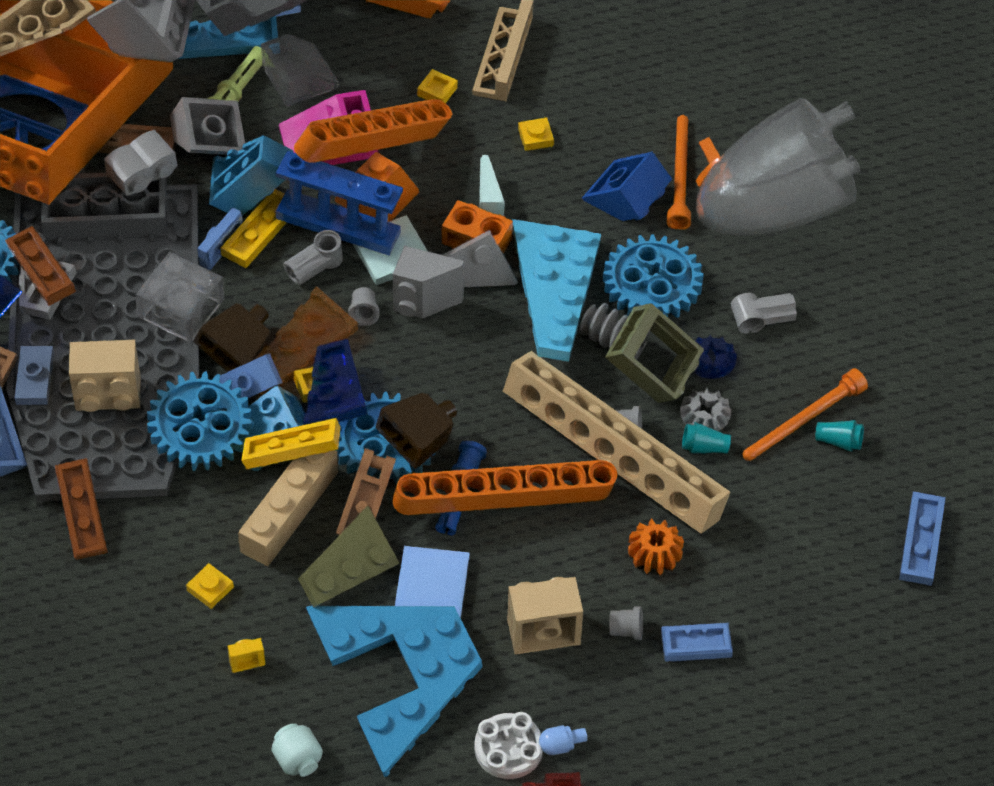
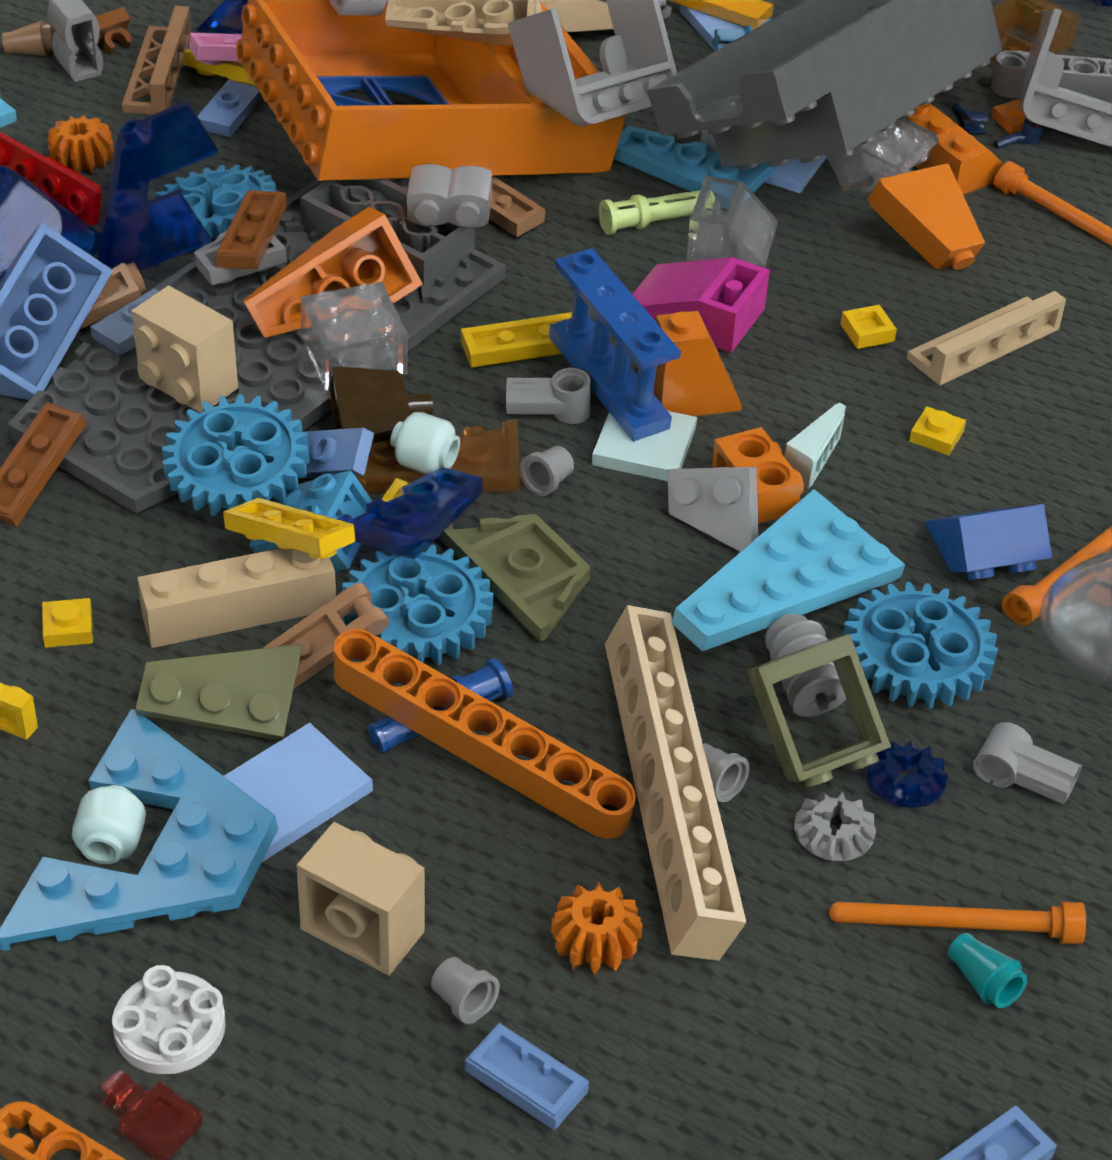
camera: 40 degrees right, 10 degrees down
(129, 253) = (348, 256): none -> orange wedge
(207, 125) = (569, 213): light grey slope -> none
(209, 250) = (448, 321): medium blue plate -> none
(246, 175) = (537, 284): dark azure wedge -> none
(294, 338) = (425, 443): none -> light aqua head
(369, 674) = (108, 824): none -> light aqua head
(372, 130) = (721, 294): orange beam -> none
(412, 370) = (526, 565): none -> olive wing
(417, 426) = (449, 602): dark brown torso -> none
(426, 283) = (631, 479): light grey slope -> none
(561, 739) = (232, 1061): light blue cylinder -> none
(703, 439) = (793, 853): teal cone -> none

